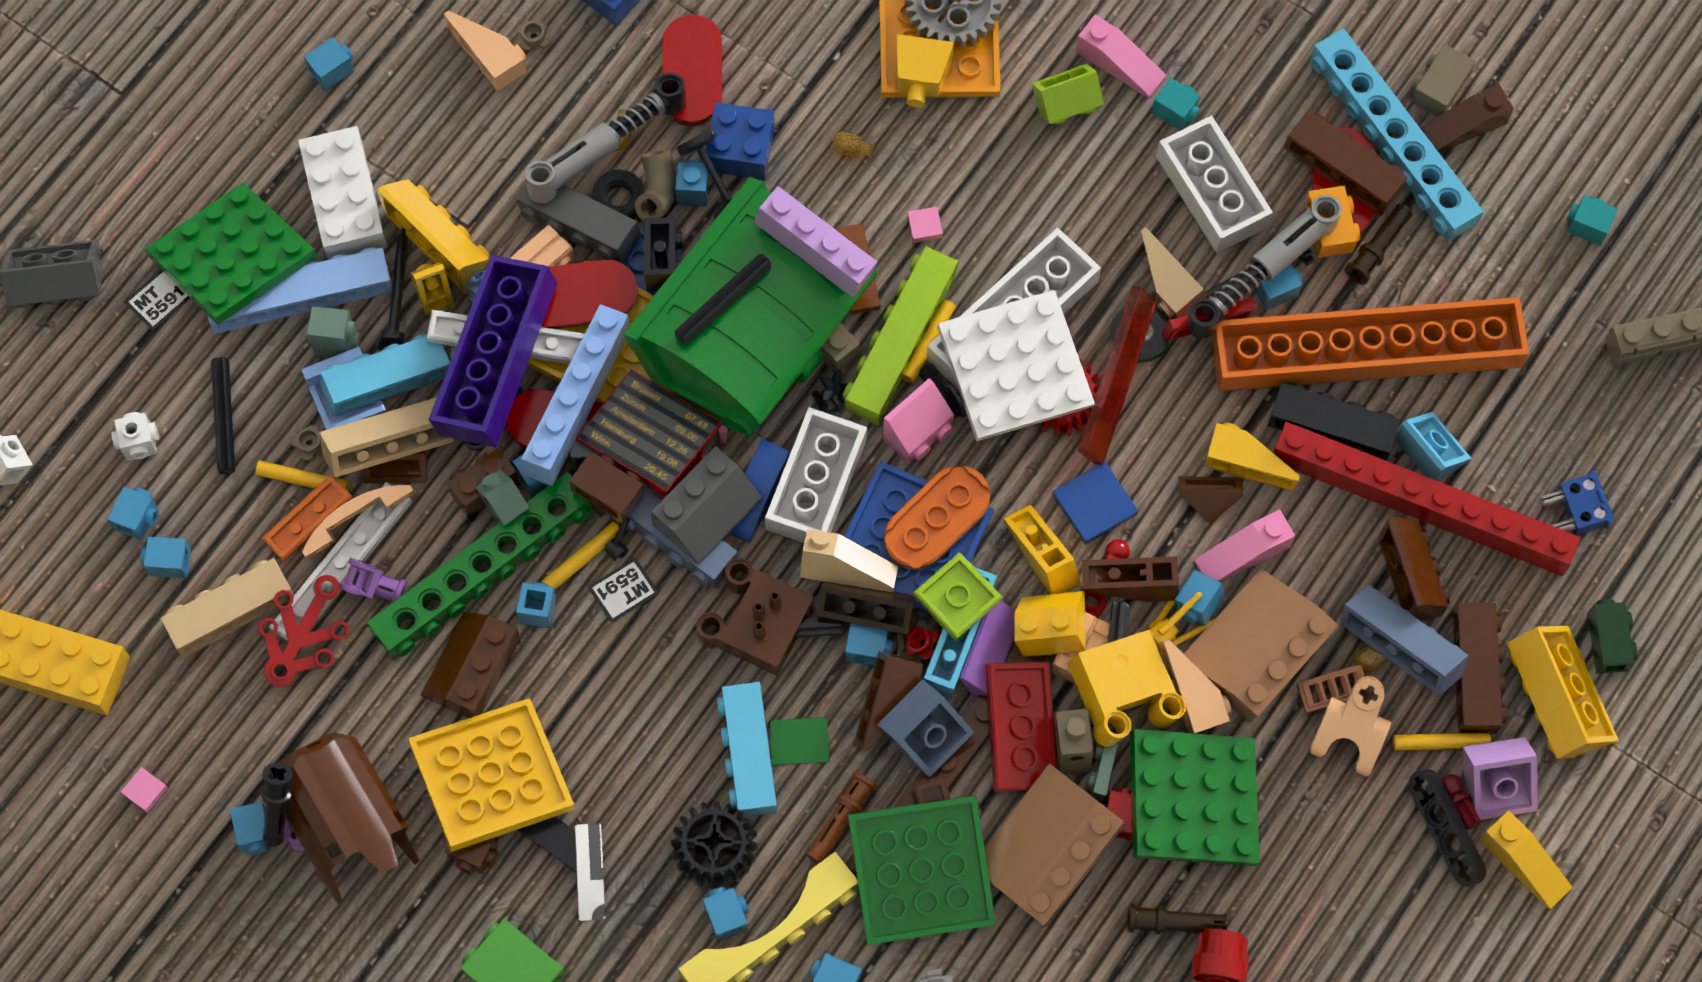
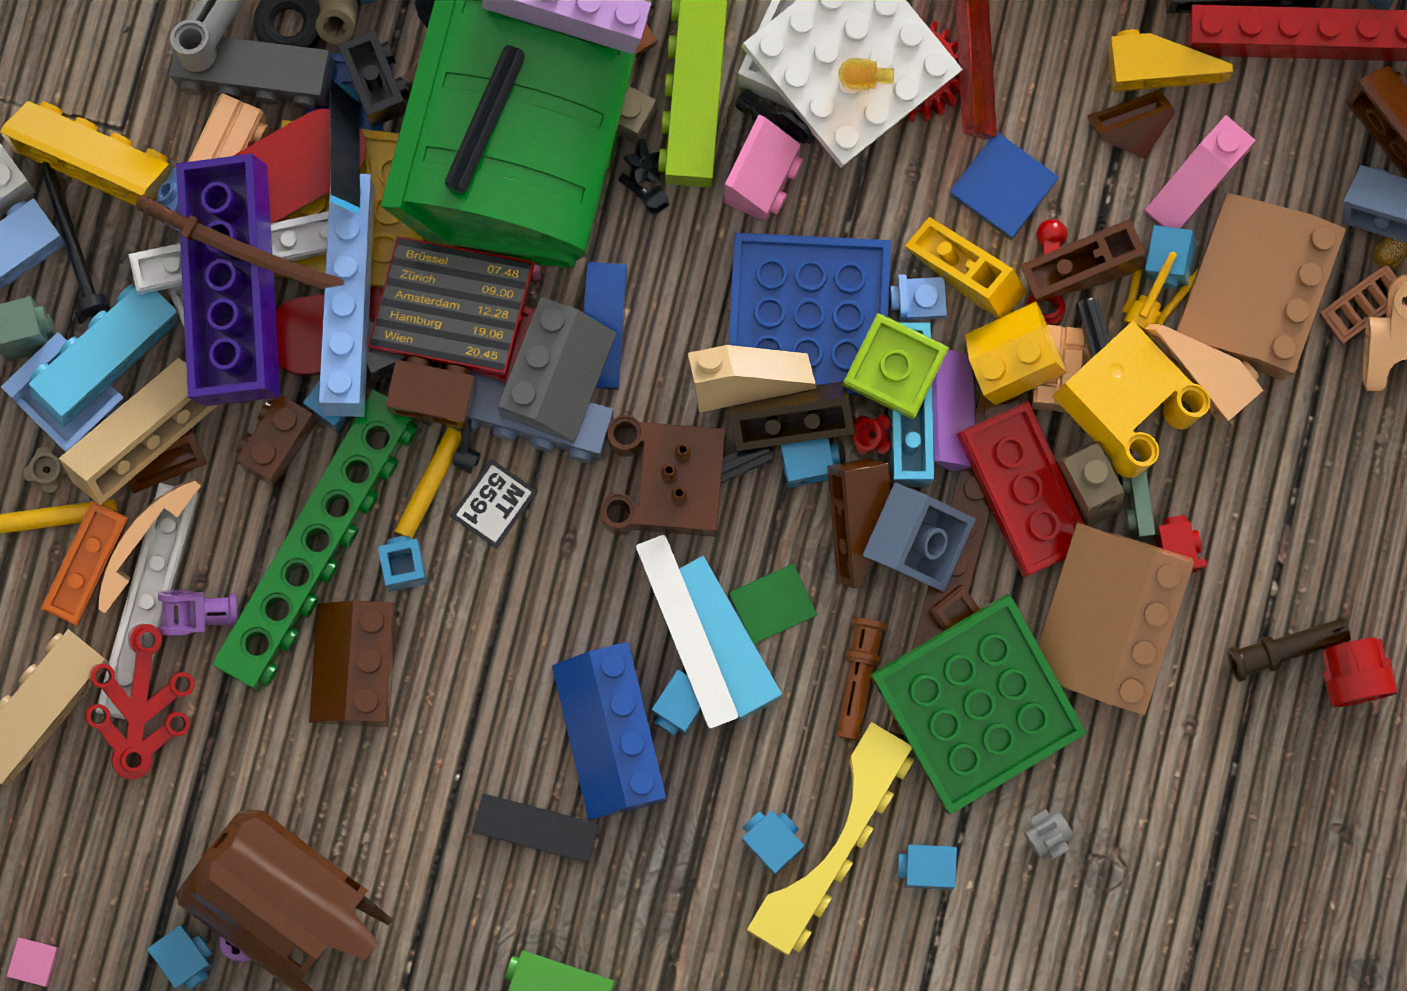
camera: 20 degrees left, 10 degrees up
(275, 796) = (203, 920): black pin -> none
(432, 287) = (113, 222): yellow slope -> none
(475, 857) = (449, 883): reddish brown brick -> none
(483, 303) = (192, 228): none -> reddish brown sword
(490, 774) = (435, 787): yellow plate -> none
(502, 497) = (310, 452): sand green brick -> none
(590, 872) = (595, 853): white sticker -> none
(617, 290) = (344, 147): none -> black sticker
(639, 785) = (609, 731): none -> blue slope
(698, 784) = (677, 705): none -> dark azure brick
(724, 731) = (687, 631): none -> white sticker
(729, 845) = (737, 799): black gear -> none
(816, 475) = (668, 281): white brick -> none
(919, 356) = (731, 61): yellow piece -> none
(937, 517) = (829, 277): orange tile -> none
(998, 559) = (919, 298): none -> light blue bracket
(1018, 377) = (863, 74): none -> clear yellow cylinder
(1194, 797) = (1255, 496): green plate -> none

